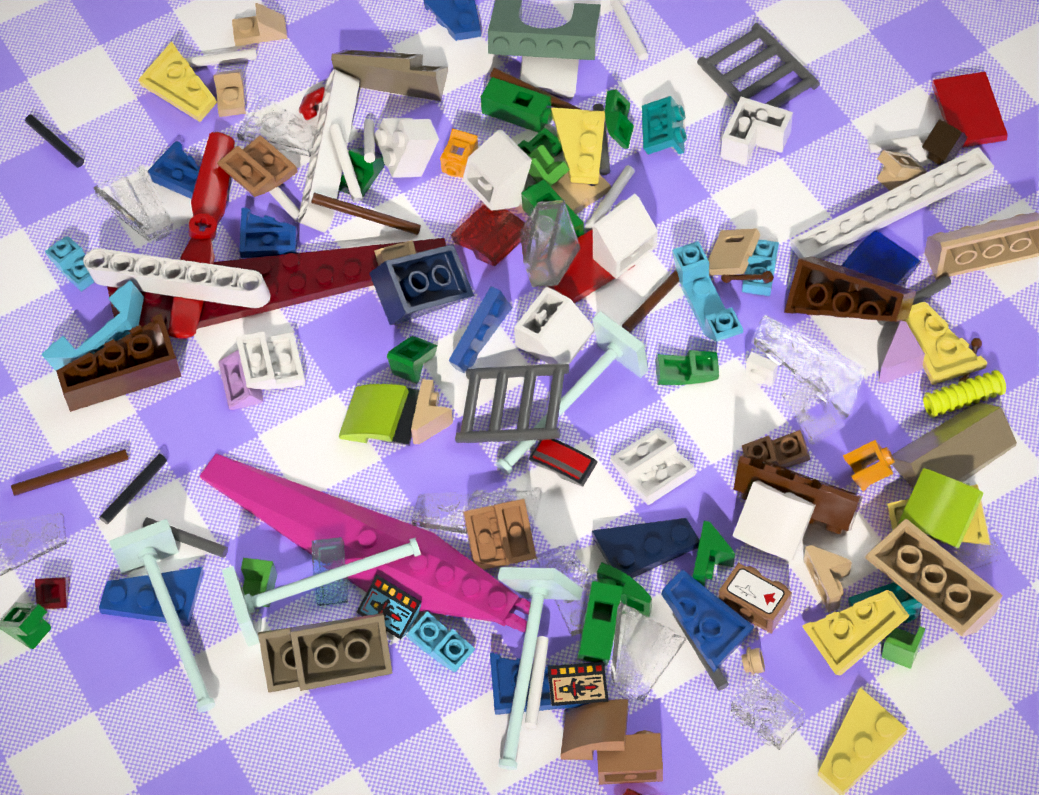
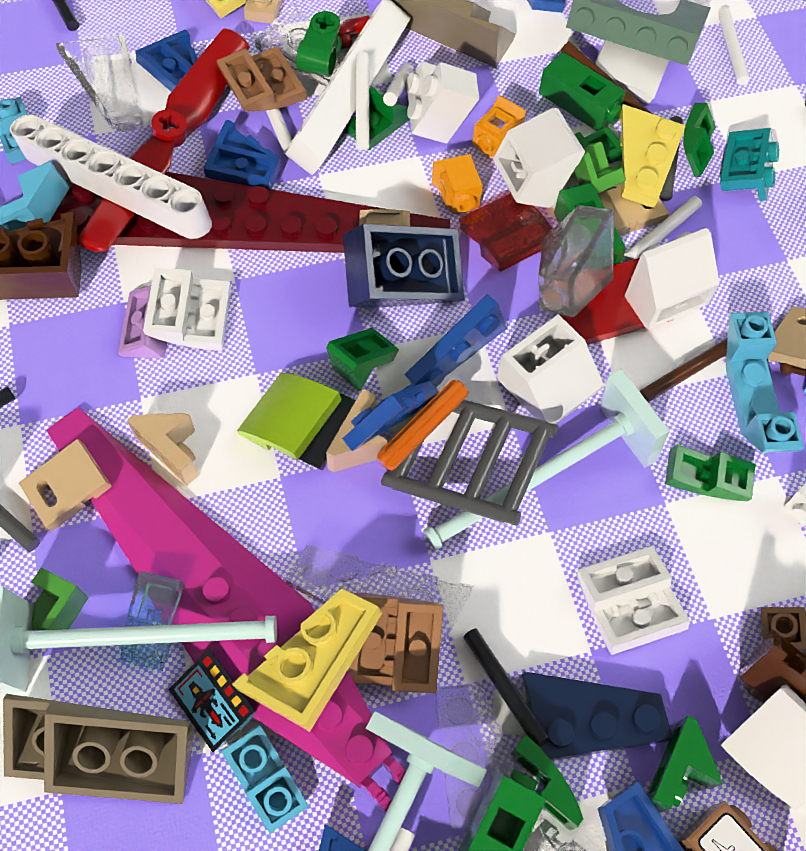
camera: 10 degrees right, 5 degrees up
(234, 499) = (72, 478): none -> tan piece
(289, 456) = (164, 439): none -> tan slope
(297, 126) = (320, 45): none -> green piece
(365, 213) = (365, 164): reddish brown bar -> none
(441, 207) = (458, 183): none -> light orange window
(448, 388) = (389, 413): none -> blue wing
(450, 558) = (309, 666): none -> light yellow wing
(472, 391) = (422, 425): none -> orange axle
(563, 460) = (515, 557): slope -> none
(579, 541) = (506, 687): none -> black bar

